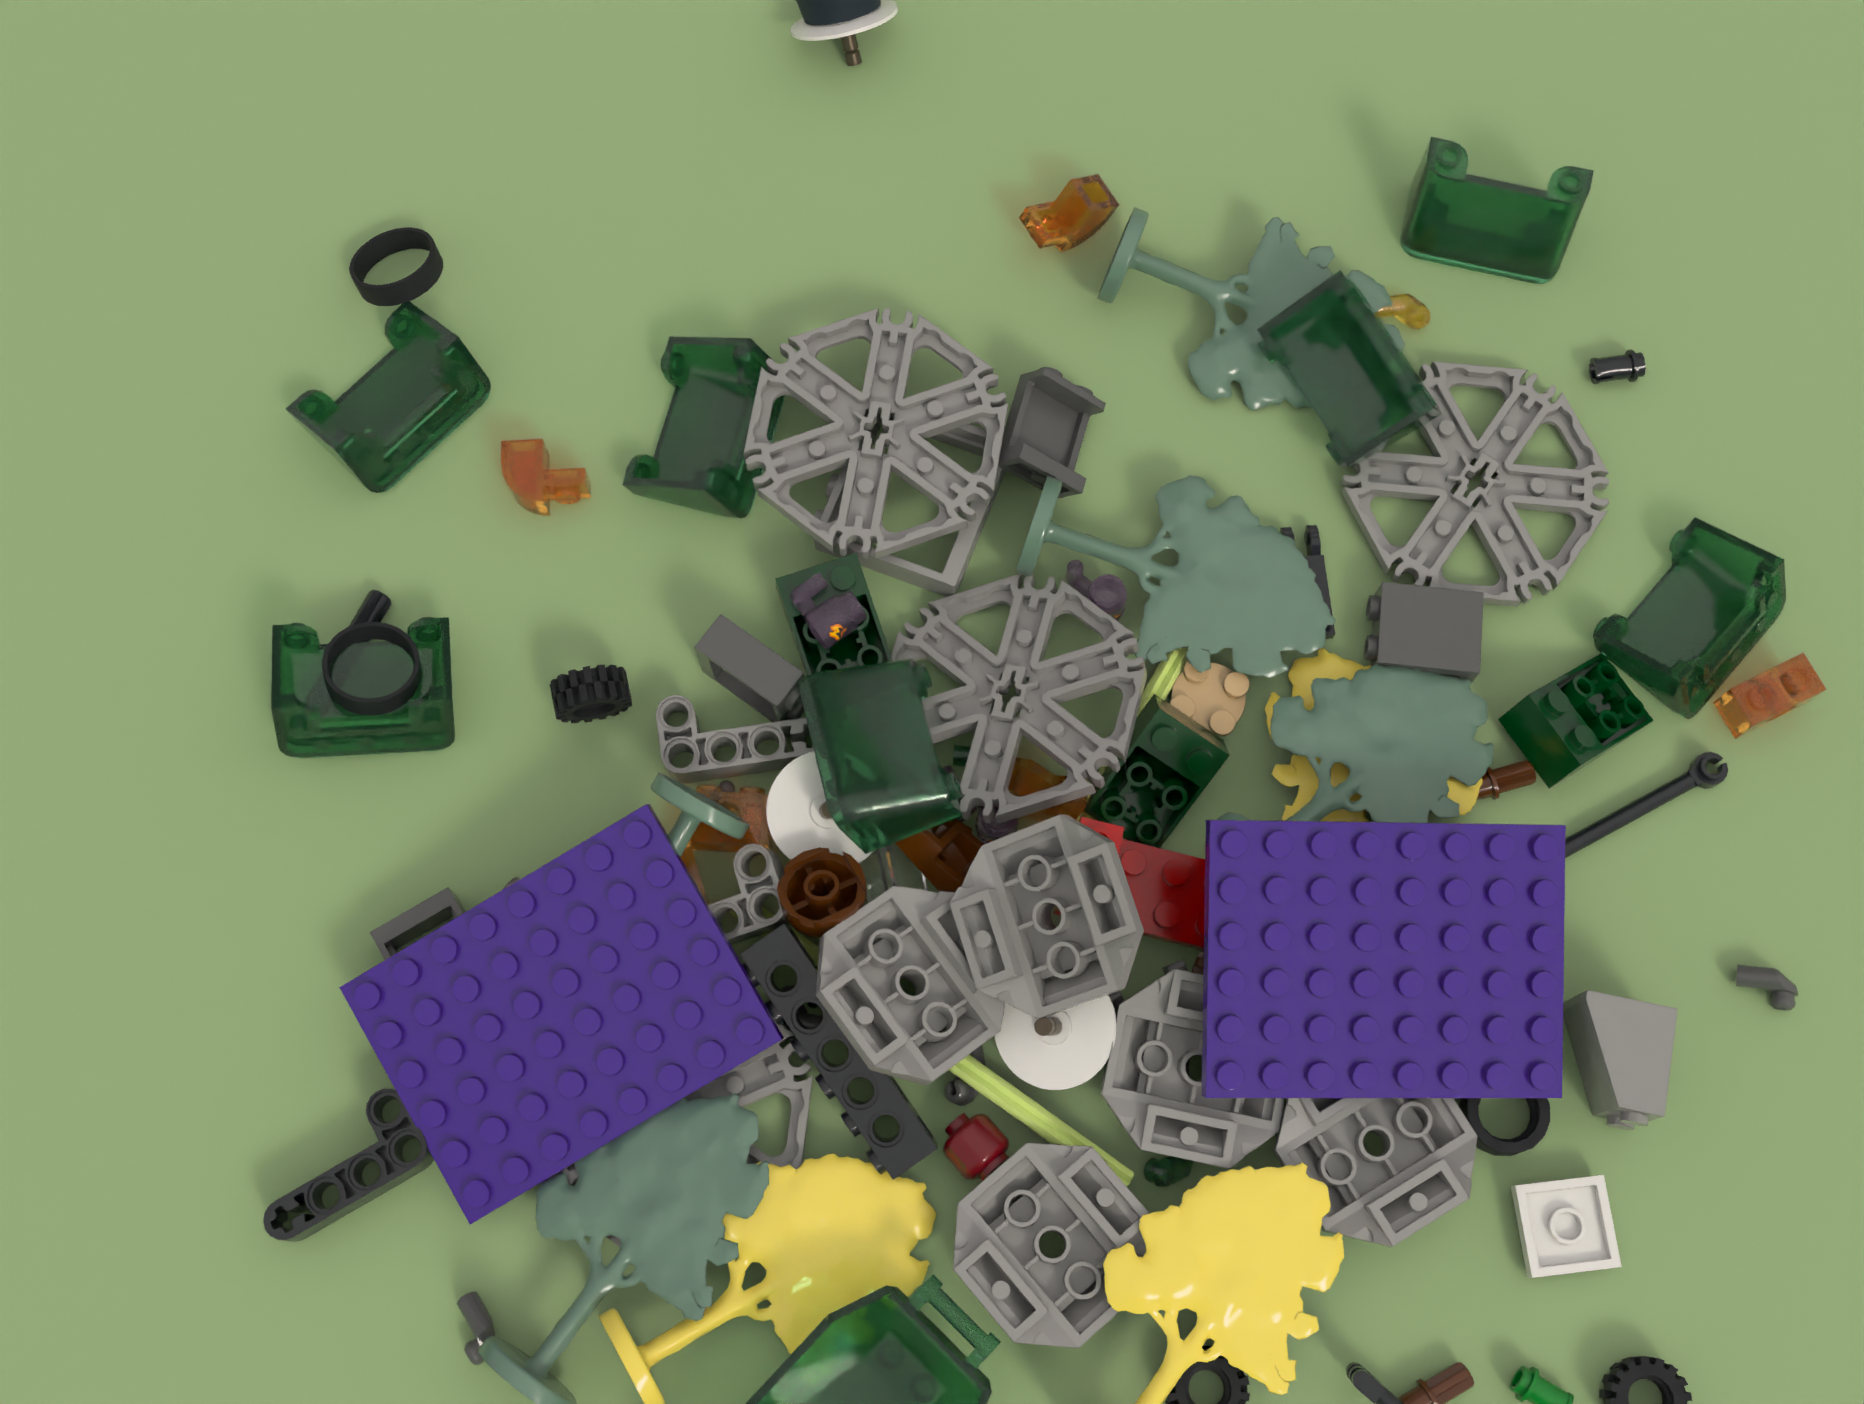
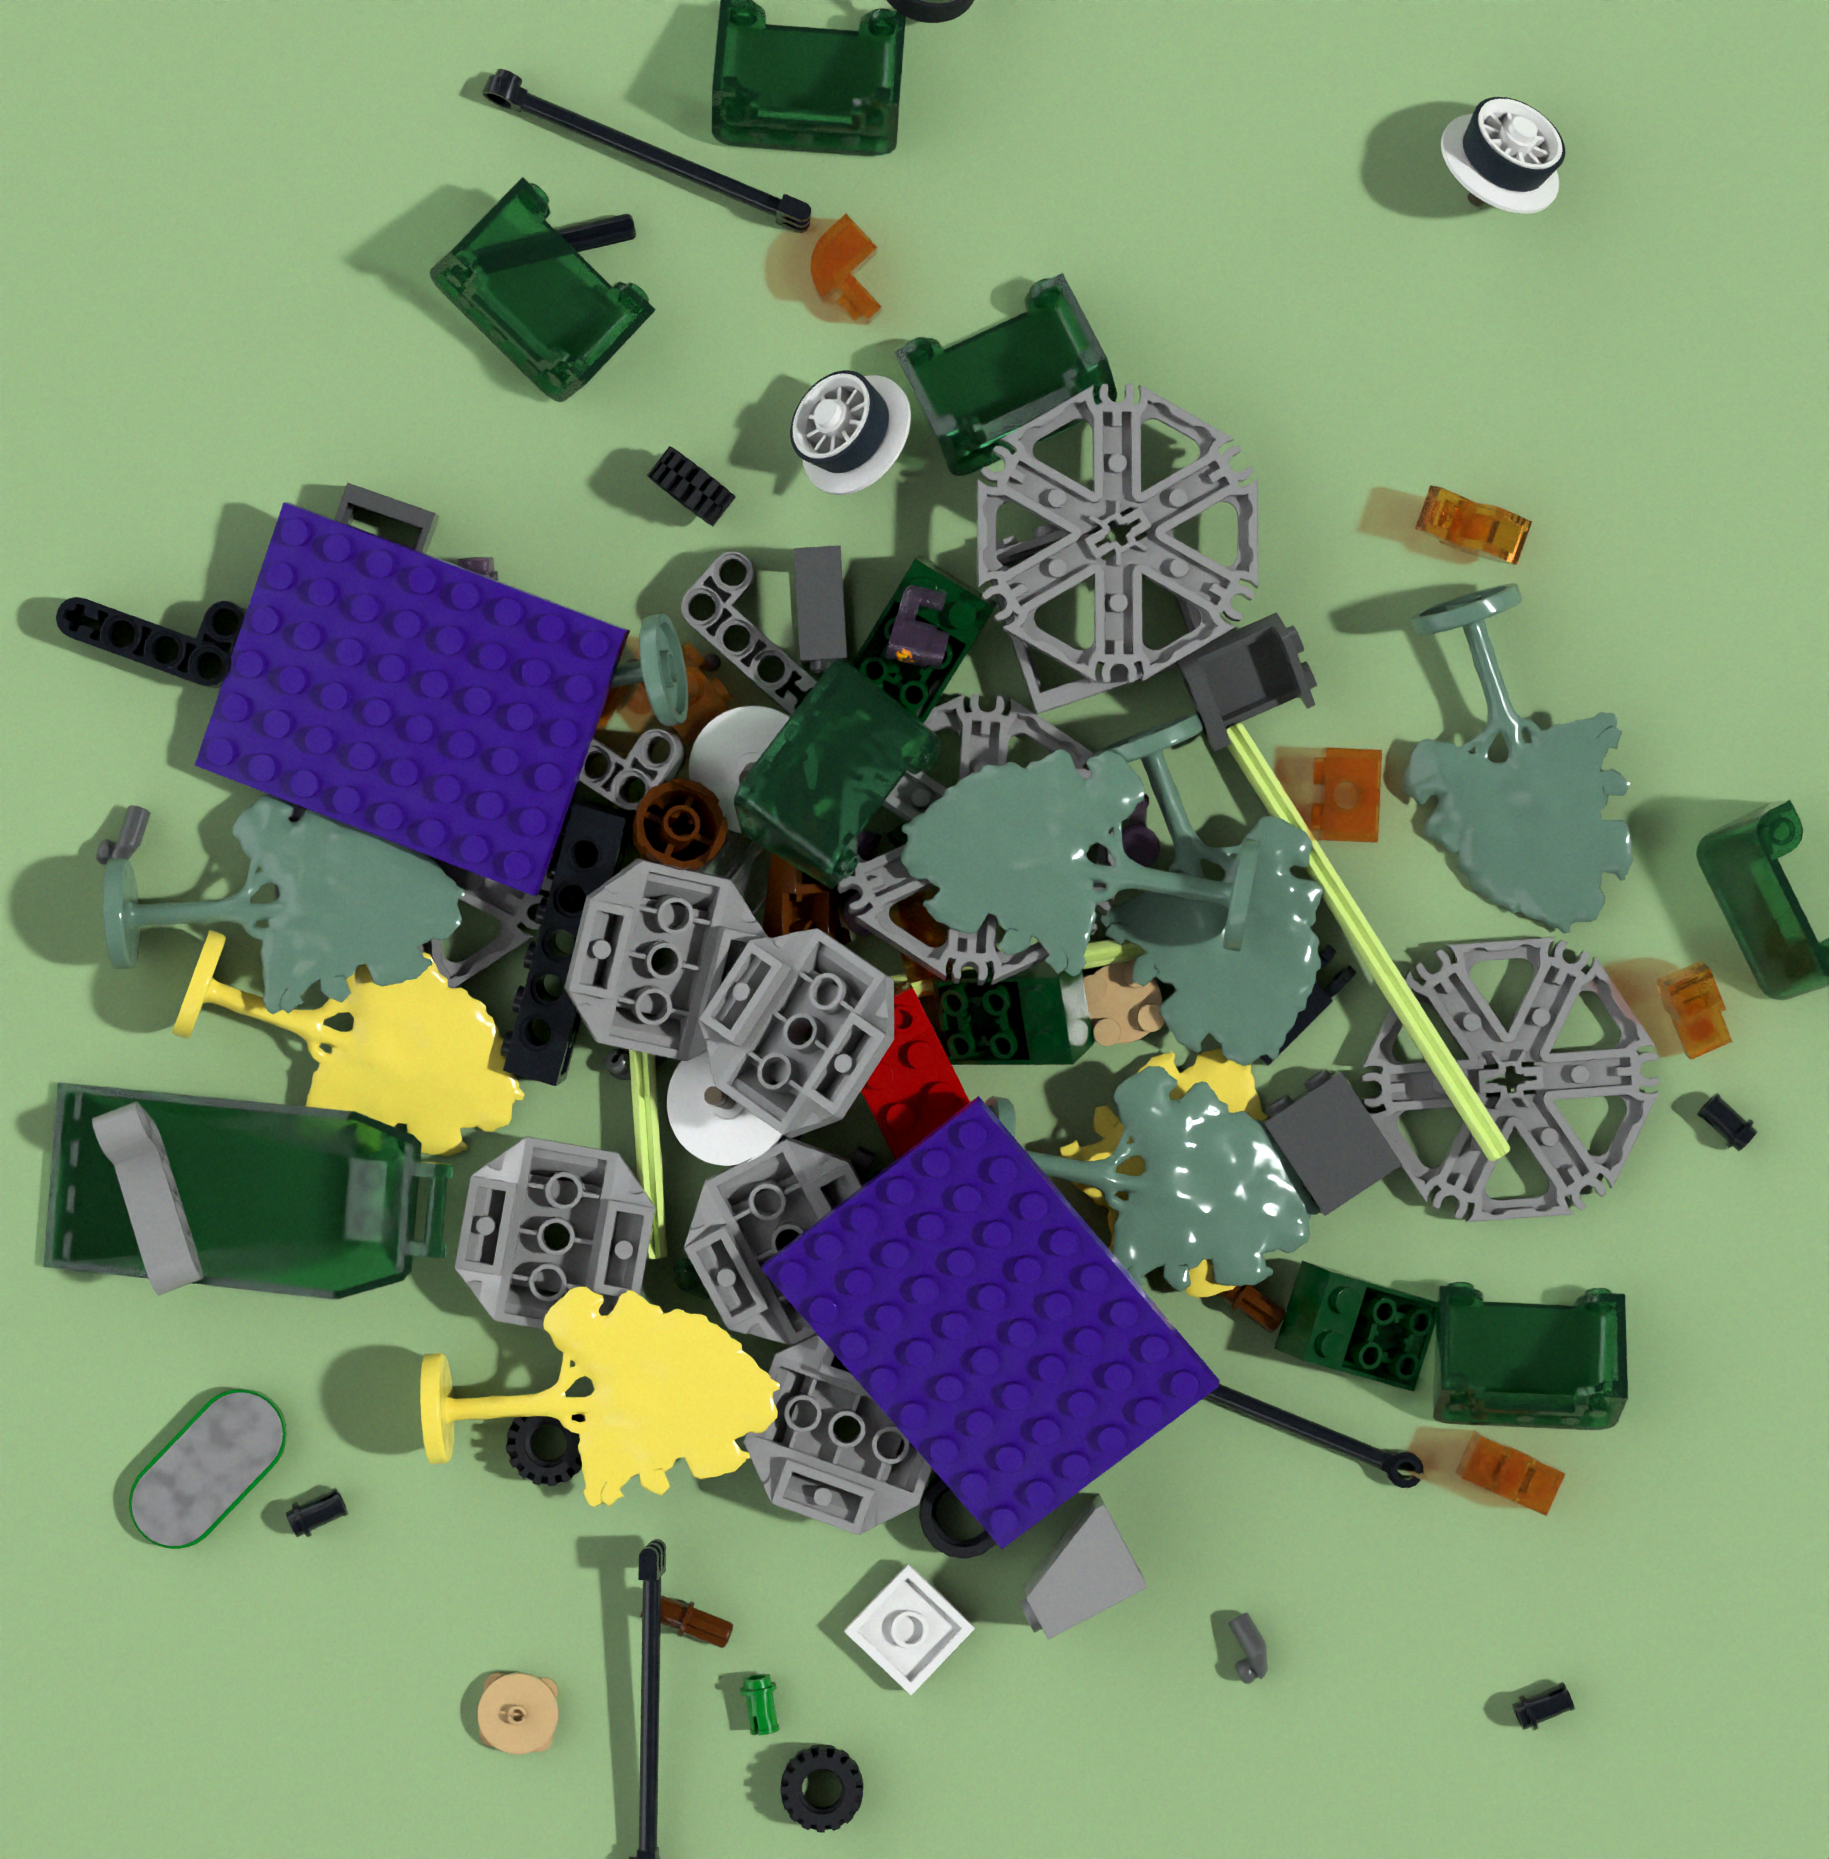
camera: 55 degrees right, 15 degrees up
(215, 605) = (506, 92): none -> black hinge
(370, 631) = (594, 257): black tyre -> none
(648, 553) = (850, 430): none -> white piece
(975, 1146) = (585, 1113): dark red head -> none
(1043, 664) = (1018, 850): none -> sand green plant
(1181, 412) = (1361, 770): none -> clear orange brick
(1320, 499) = (1372, 951): none -> yellowish green axle
(1348, 370) = (1517, 899): clear green windscreen -> none
(1407, 310) = (1633, 896): clear yellow arm -> none
(1517, 323) = (1695, 1008): none -> clear orange brick

